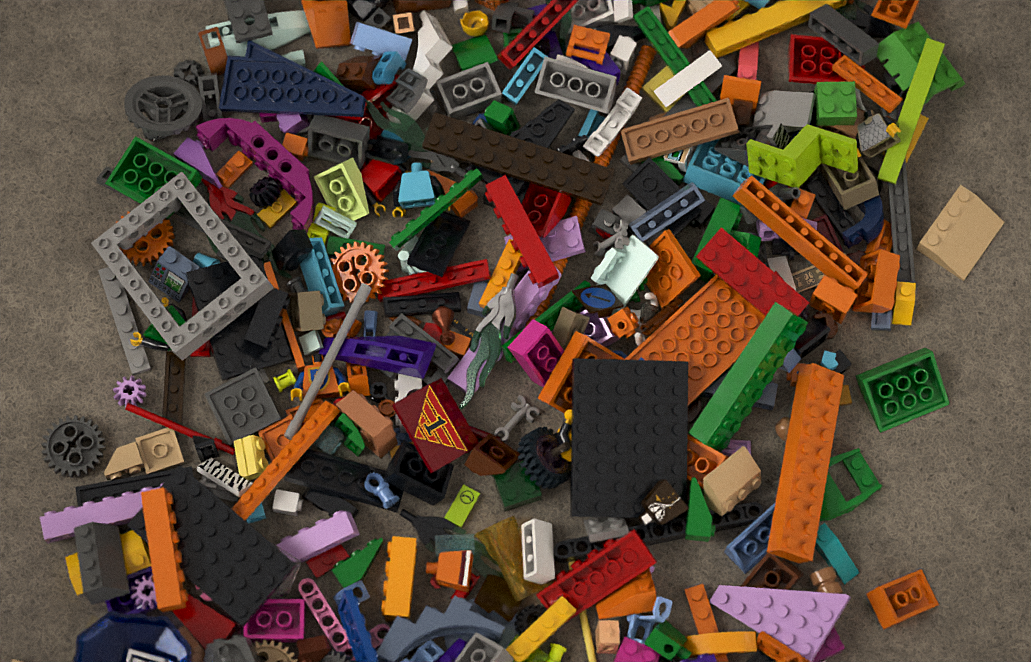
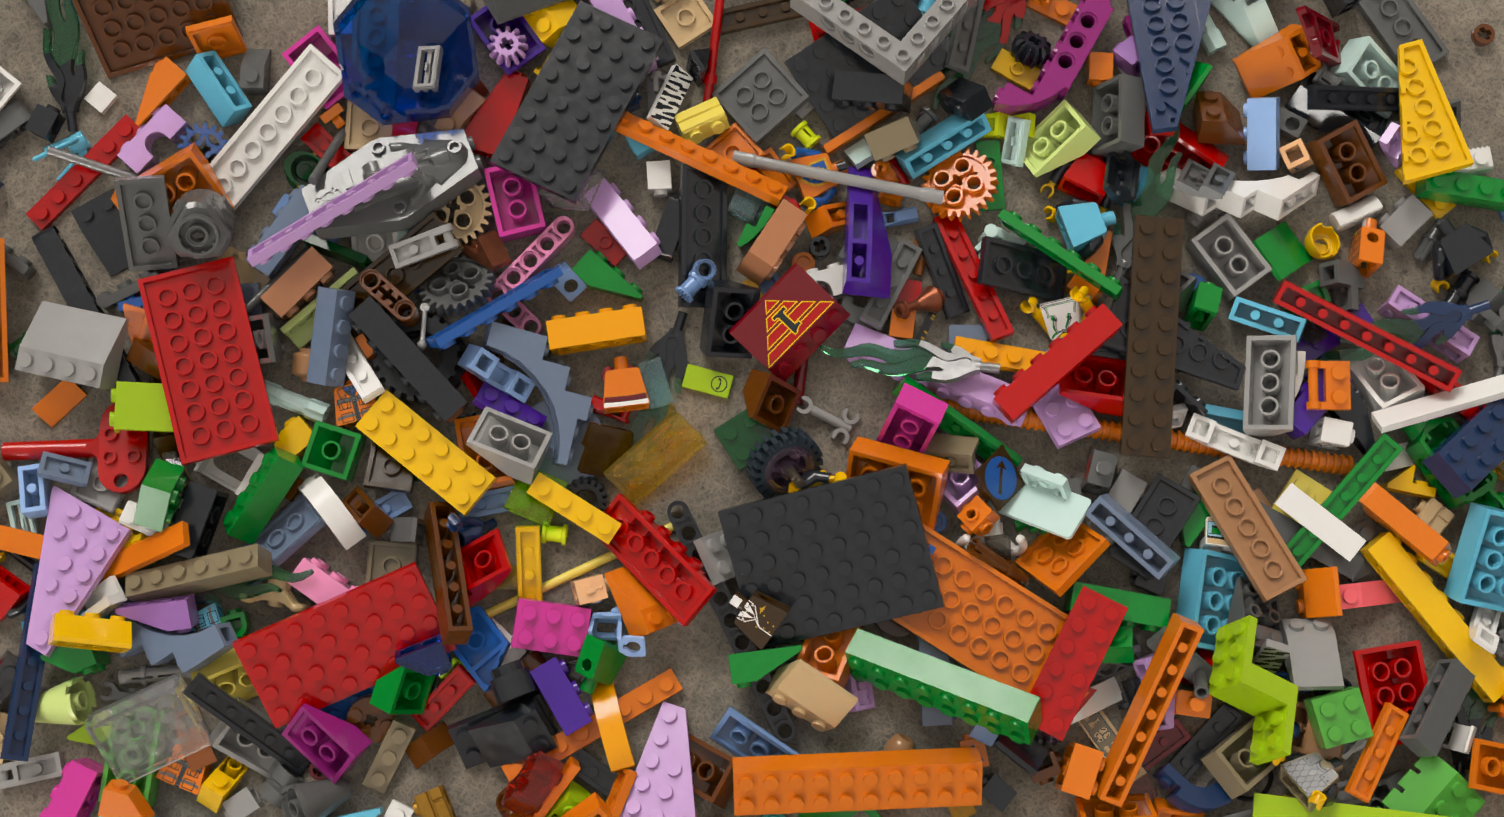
camera: 80 degrees right, 10 degrees up
(163, 549) = (555, 47): orange brick -> none
(387, 68) = (1229, 149): dark azure leg -> none
(483, 222) = (1059, 315): none -> torso
(538, 551) = (670, 482): white brick -> none
(618, 238) = (1082, 484): light grey bar -> none
(742, 111) = (1297, 600): reddish brown bracket -> none
(828, 360) = (995, 781): medium azure piece -> none
(869, 24) = (1461, 738): none -> white piece

